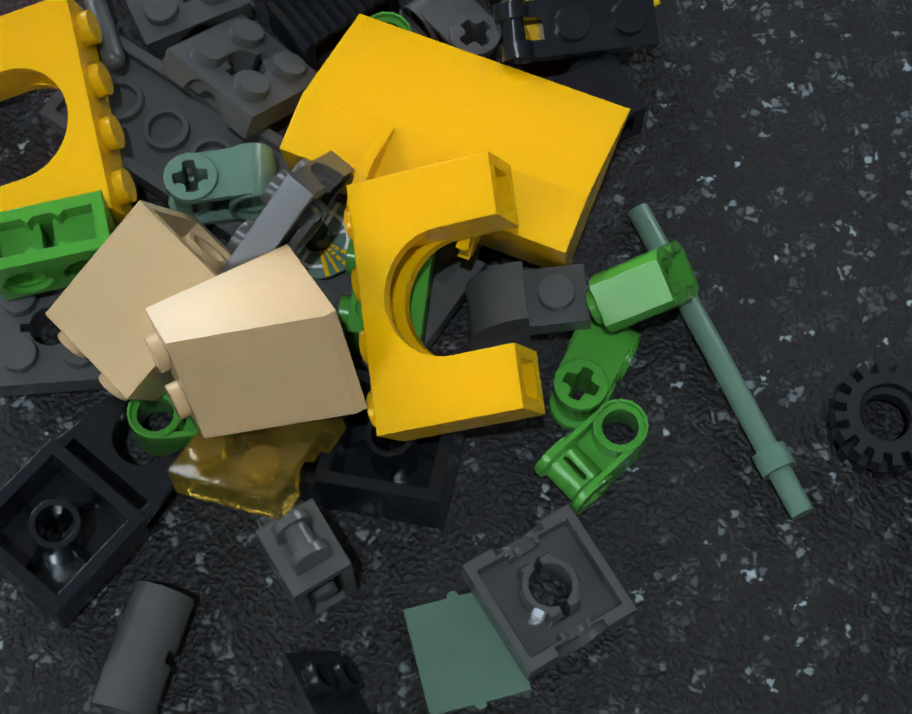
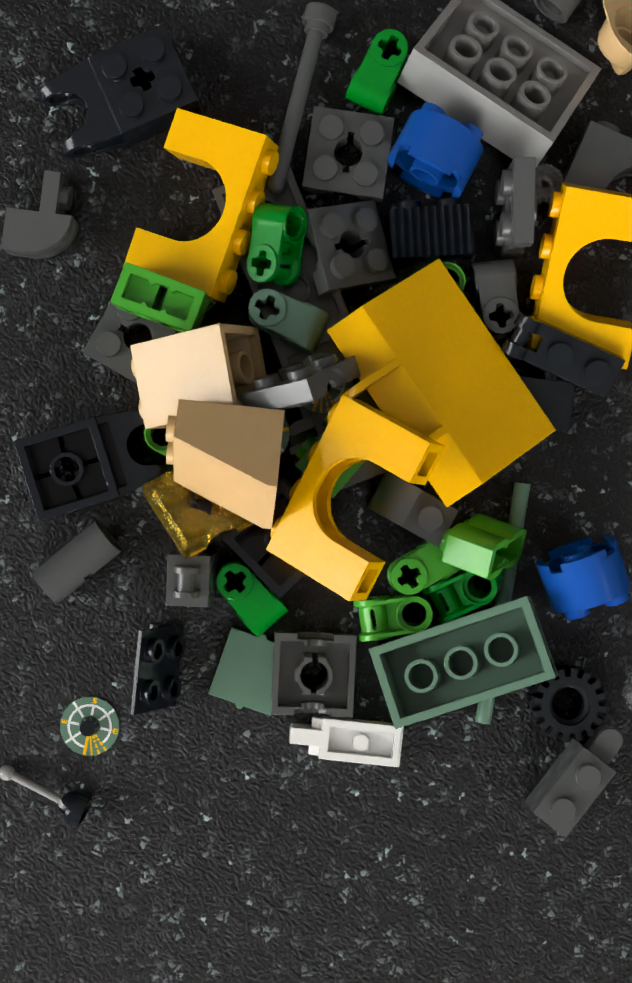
camera: 40 degrees right, 20 degrees up
(150, 103) = (277, 239): none -> green piece
(407, 548) = (254, 602): none -> green piece
(655, 646) = (350, 740): none -> white hinge
(659, 371) = (459, 595): none -> green piece
(723, 438) = (463, 662): none -> sand green brick
(790, 252) = (584, 576): none -> blue brick

